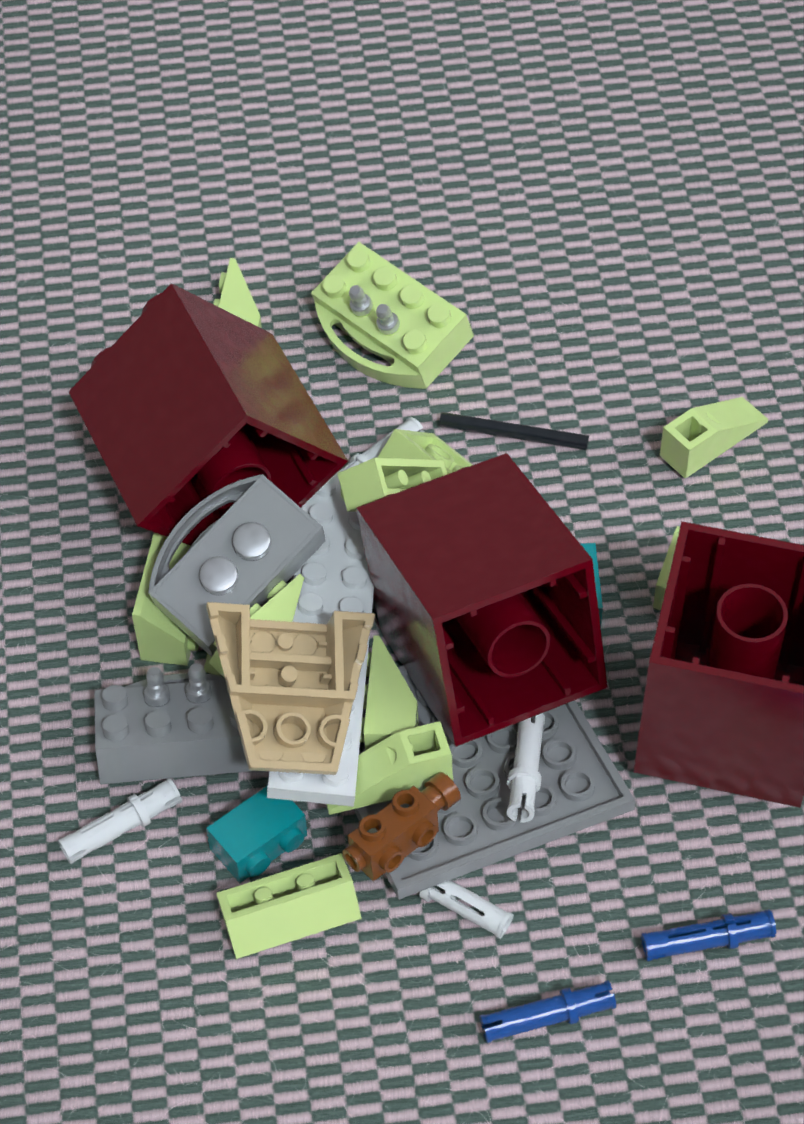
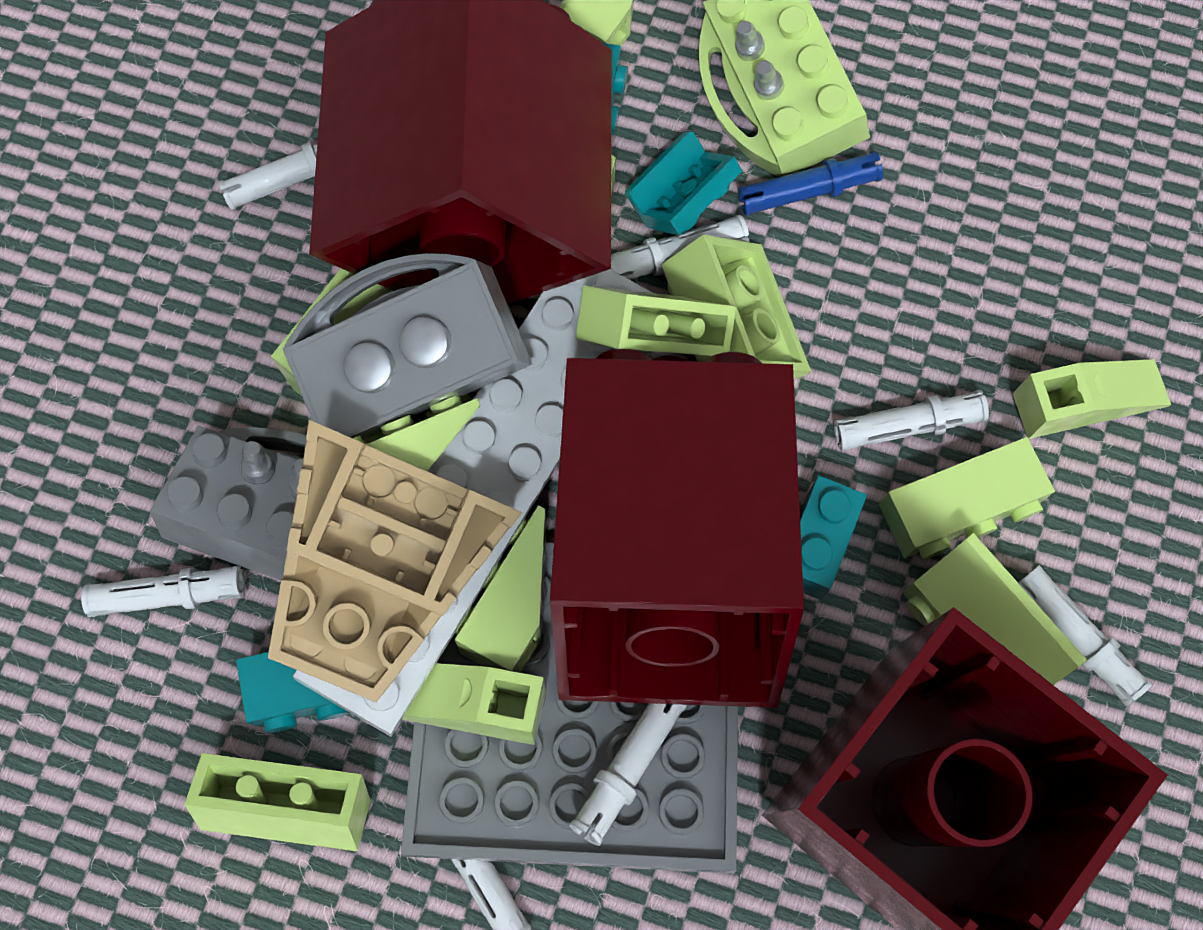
camera: 25 degrees right, 20 degrees up
(71, 505) = (270, 177): none -> white pin
(359, 413) = (681, 185): none -> teal bracket
(400, 828) = (423, 795): dark orange brick -> none
(460, 372) = (806, 184): none -> blue pin
(514, 431) = (857, 283): black bar -> none
(612, 488) = (930, 416): none -> white pin
(644, 539) = (967, 499): none -> yellowish green brick

